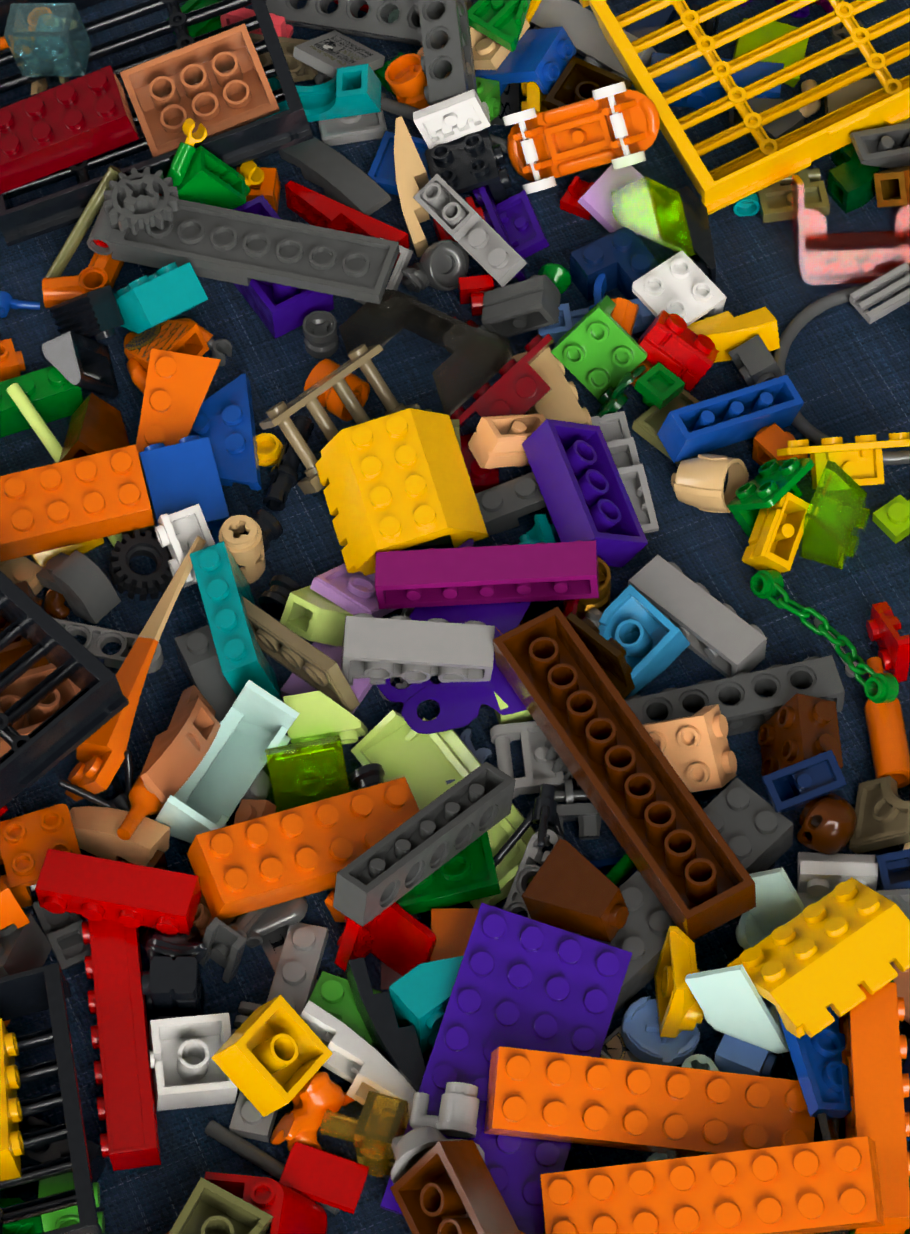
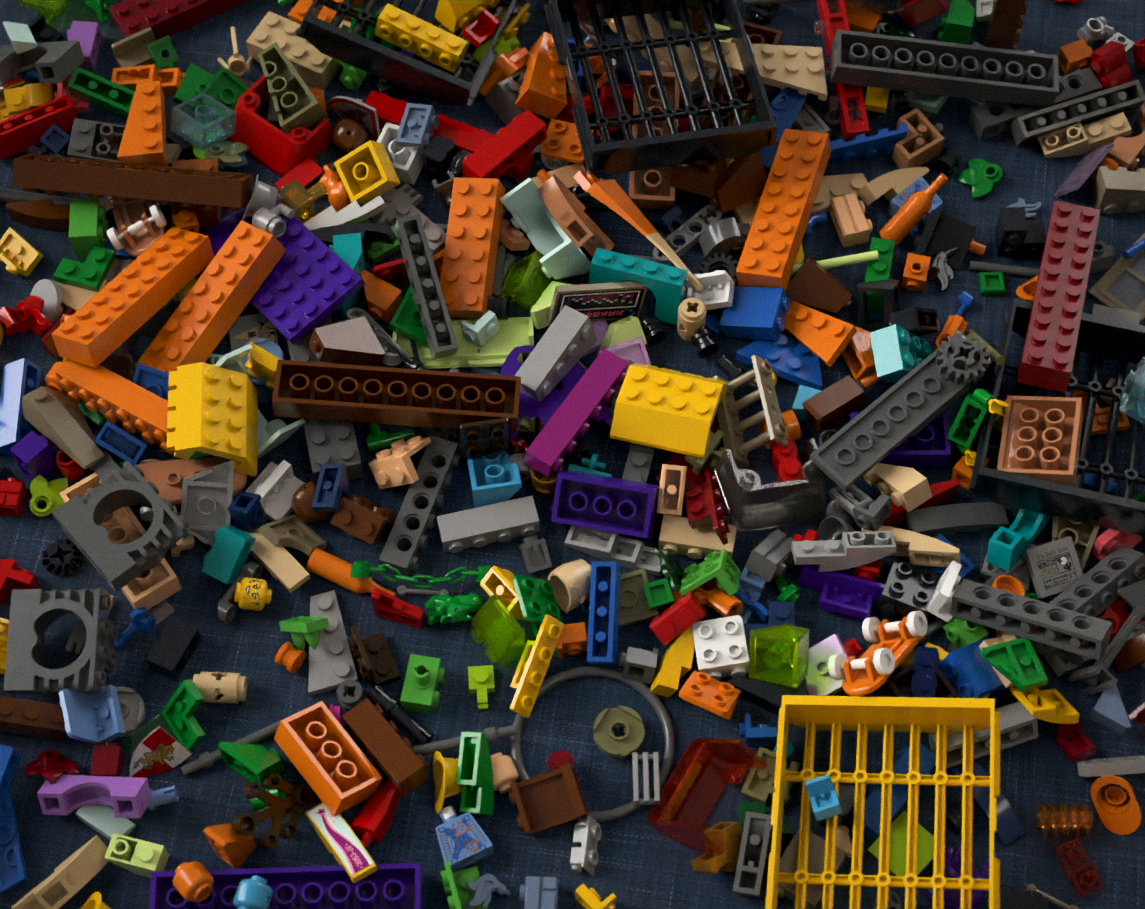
camera: 120 degrees right, 5 degrees up
(152, 1027) = (417, 126): none -> sand blue bracket
(164, 1162) = (349, 108): none -> shield
(198, 1150) = (345, 142): none -> reddish brown helmet
(266, 343) = (834, 403): none -> reddish brown slope
(276, 383) = (802, 395): none -> medium azure brick
(344, 206) = (901, 484): none -> tan slope
(398, 353) = (785, 461): none -> red brick
(400, 221) = (875, 515): none -> dark grey bracket
(422, 777) = (482, 330): none -> light aqua bracket
(575, 77) = (924, 672): none -> clear blue brick
(695, 549) = (535, 554): none -> dark grey bracket
(750, 225) = (761, 735): none -> blue bracket
(751, 268) = (710, 694): none -> orange bracket
(796, 100) = (823, 797): none -> dark azure bracket
(840, 590) = (452, 609): none -> green animal
(850, 363) = (619, 746): none -> olive plate

